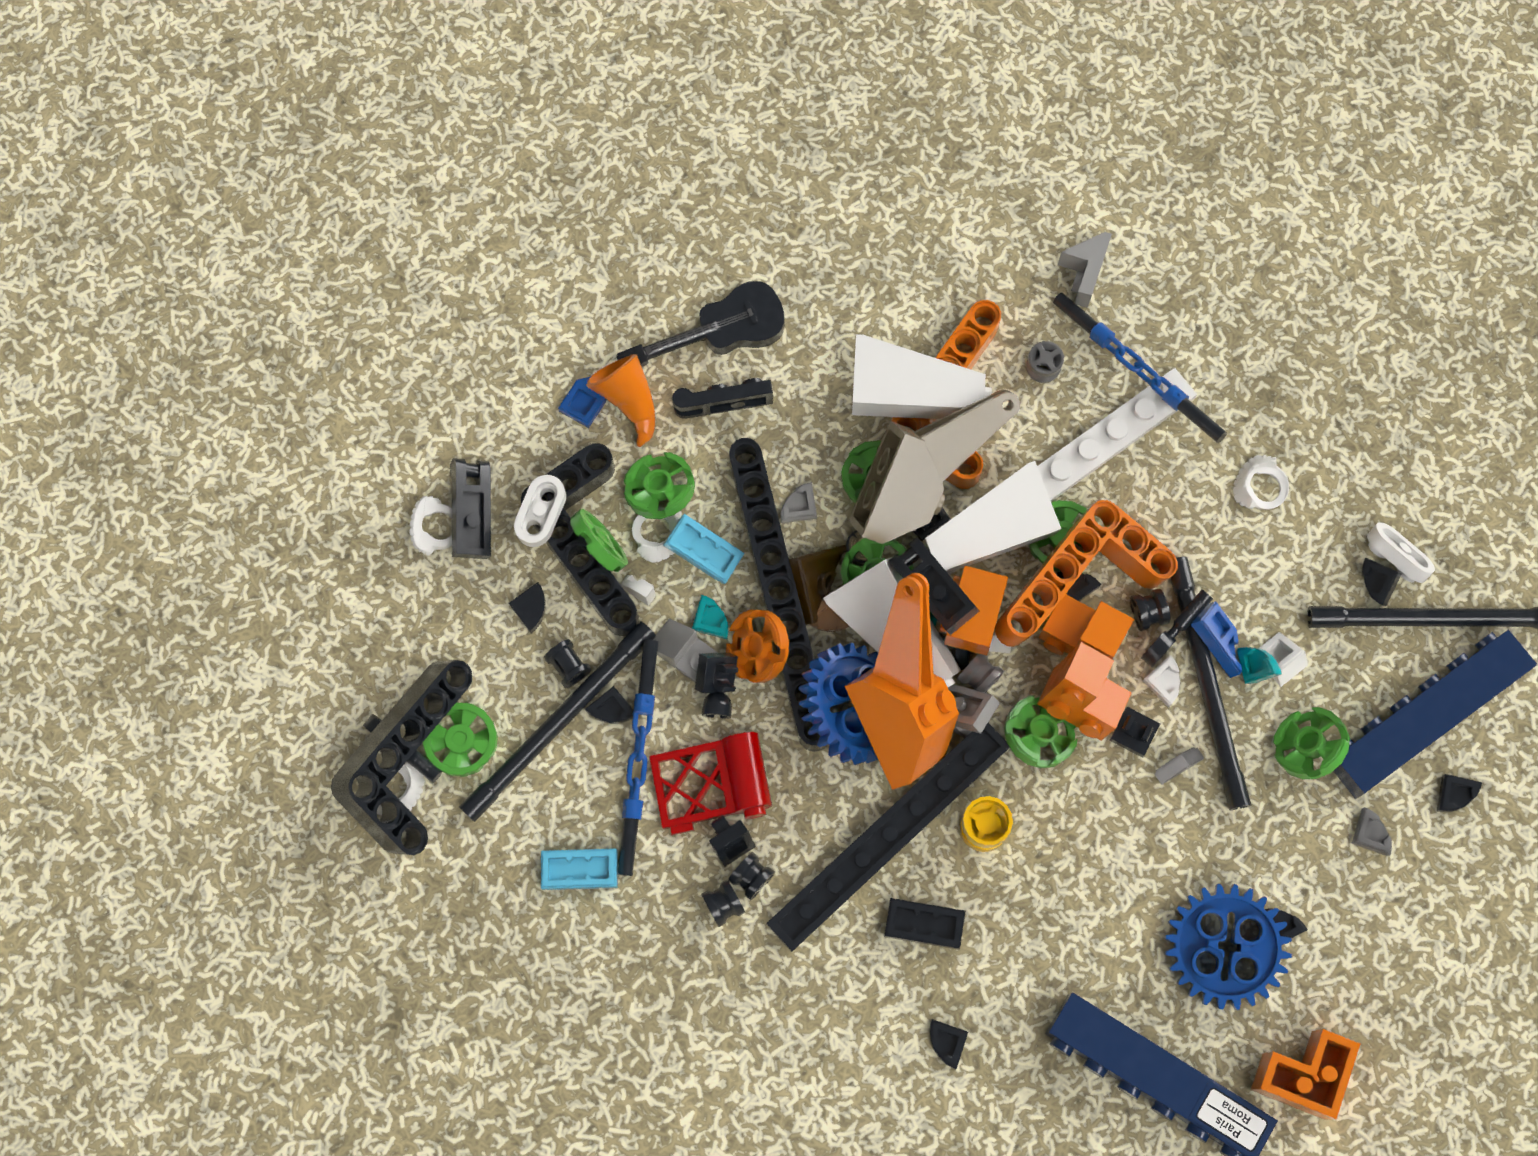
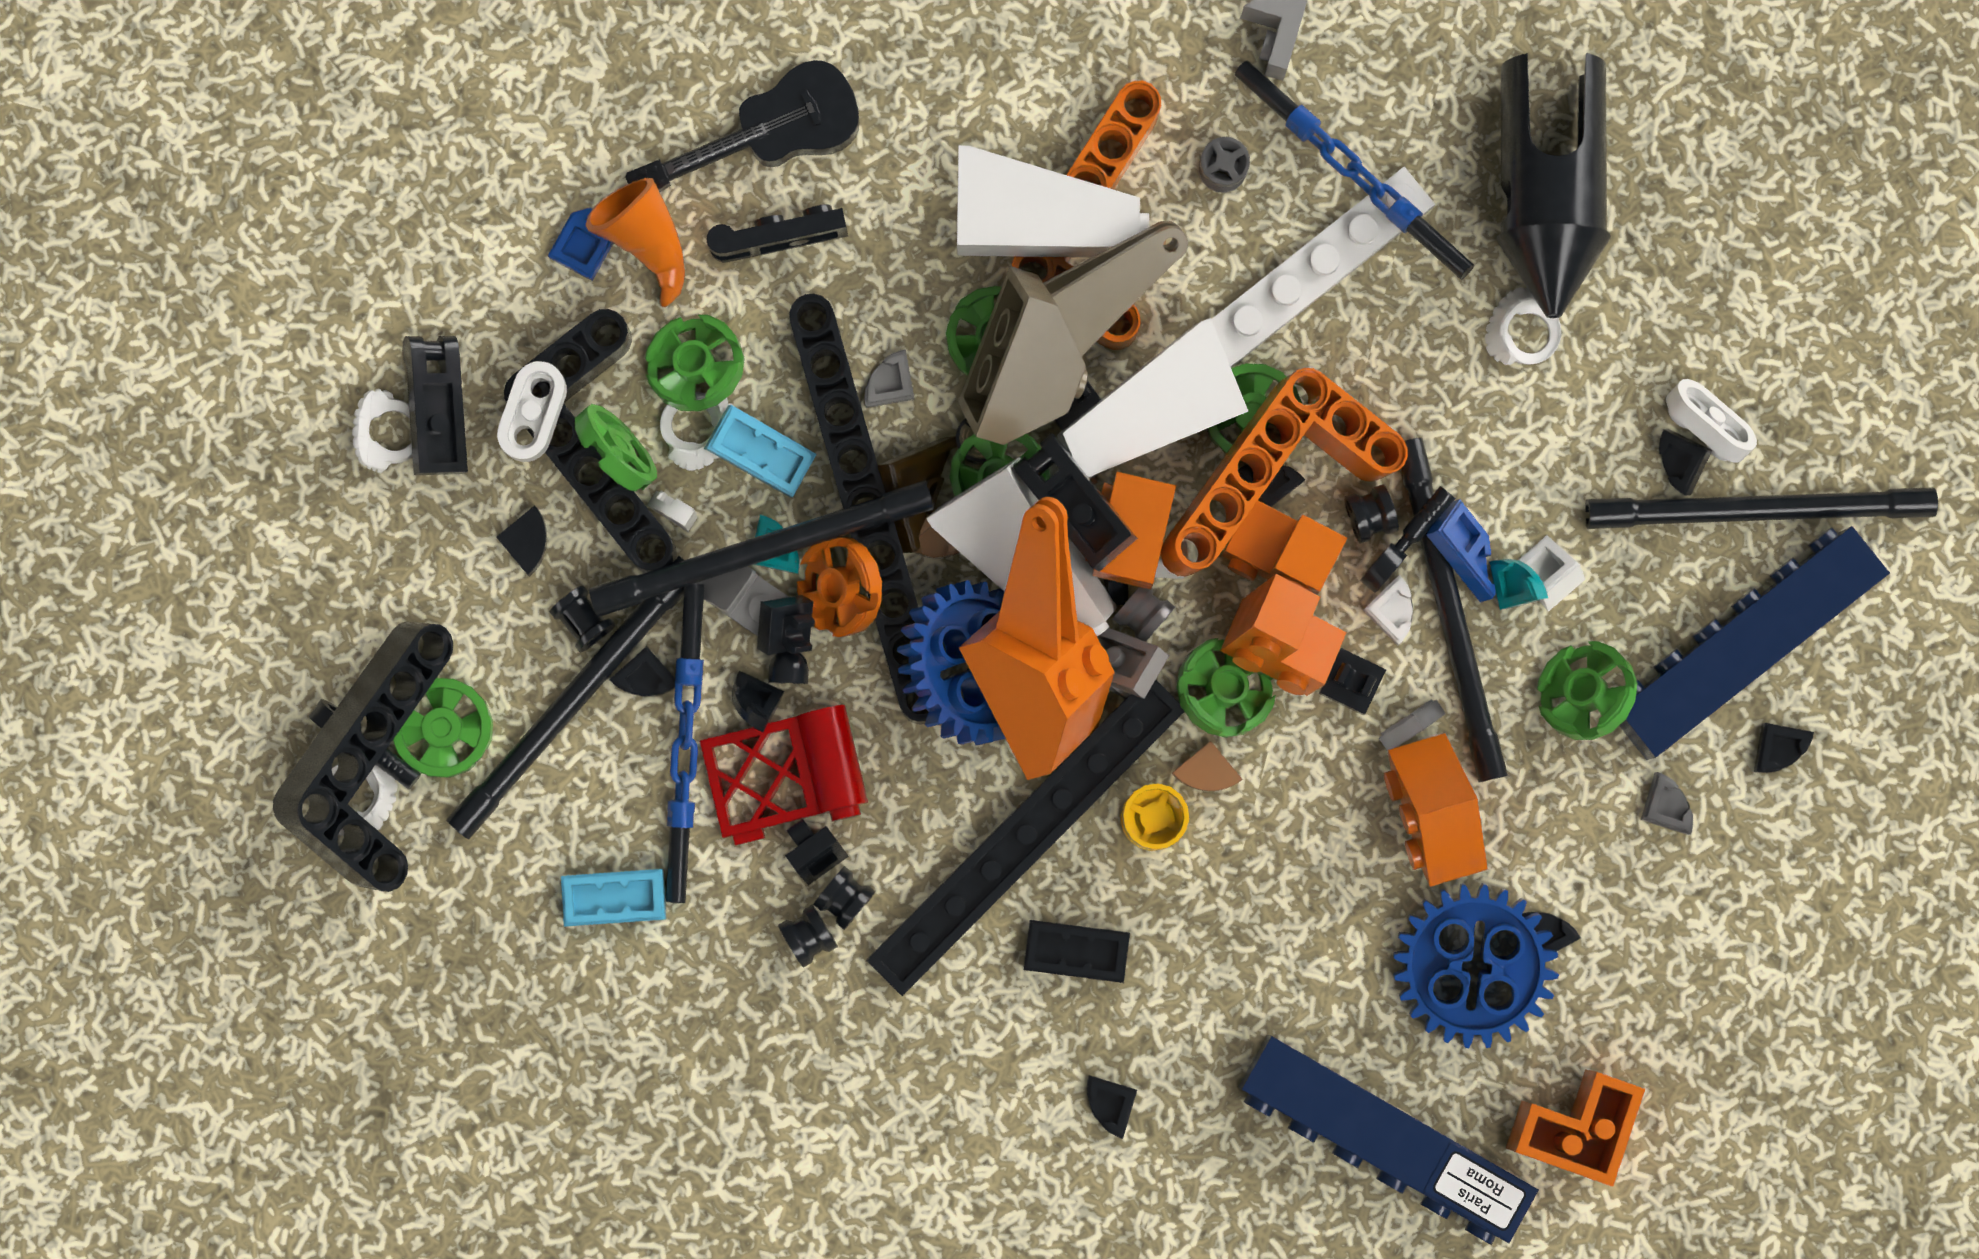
camera: 10 degrees left, 10 degrees up
(607, 641) = (636, 588): none -> black piece
(692, 727) = (755, 700): none -> black tile
(1026, 793) = (1207, 770): none -> medium nougat tile
(1200, 827) = (1436, 810): none -> orange brick
(1284, 389) = (1553, 201): none -> black piece

